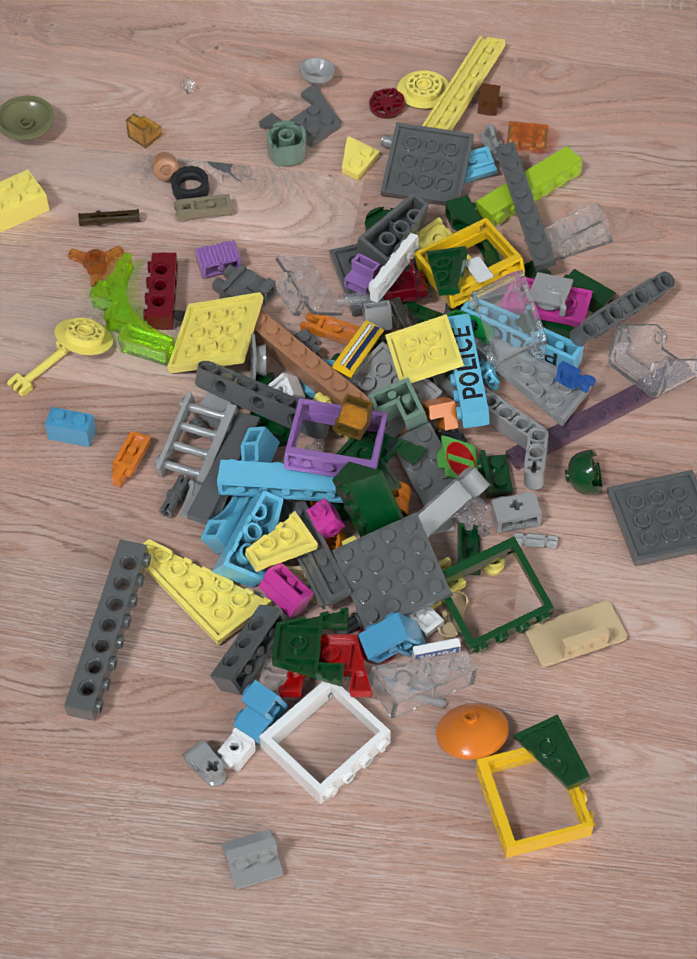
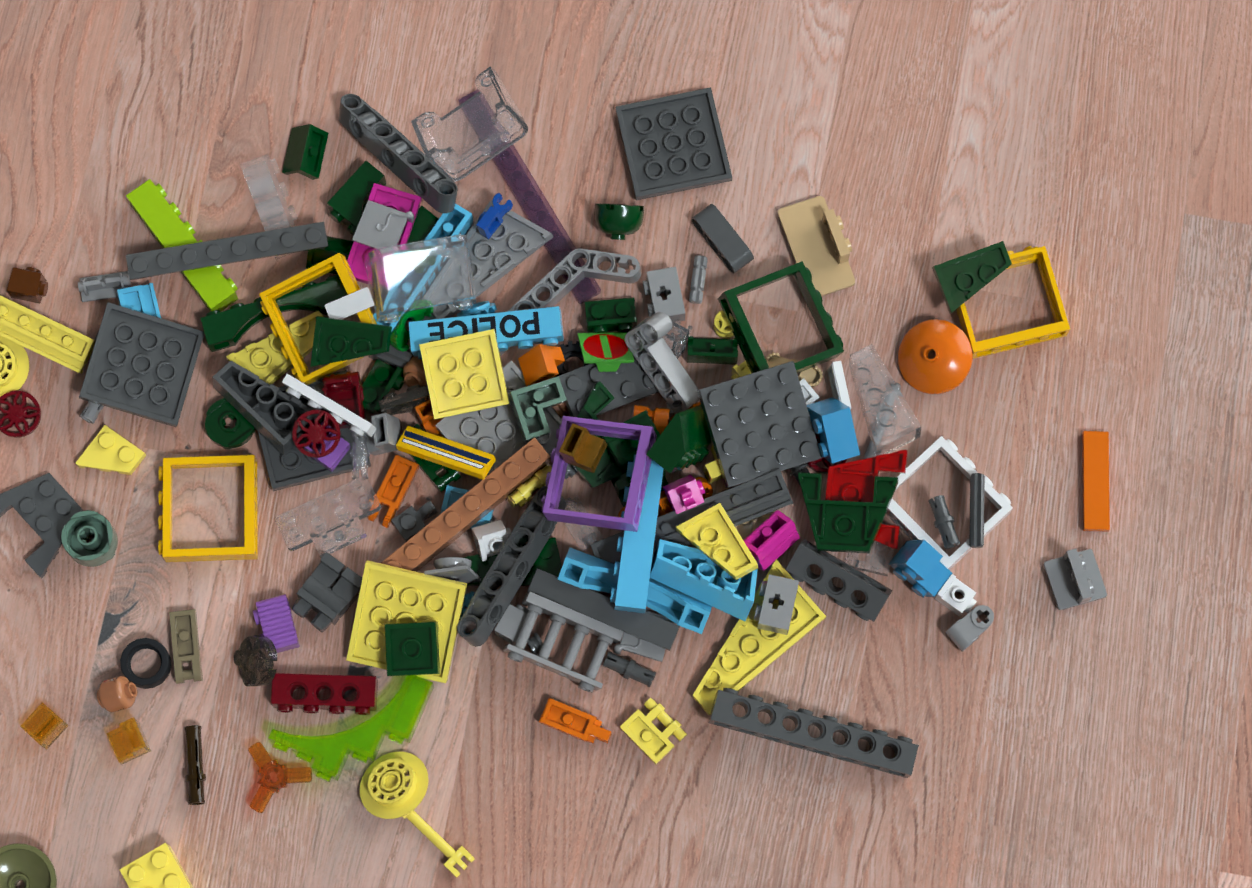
camera: 90 degrees left, 20 degrees up
(70, 426) = (531, 793): dark azure brick -> none
(117, 507) = (648, 736): none -> light yellow plate
(130, 178) = (128, 741): none -> clear yellow piece
(187, 243) = (252, 669): none -> clear smoke plate
(190, 333) = (412, 649): none -> dark green plate
(226, 595) = (777, 619): none -> light grey brick
(303, 729) = (944, 521): none -> dark grey pin
(313, 237) = (250, 548): none -> yellow window
(321, 758) = (976, 531): none -> dark grey axle
(353, 881) = (1095, 481): none -> orange tile
(368, 256) = (316, 433): none -> dark red wheel
(528, 135) = (91, 242): clear orange slope -> none
(575, 556) = (722, 238): none -> dark grey beam
(621, 262) = (305, 151): none -> dark green panel

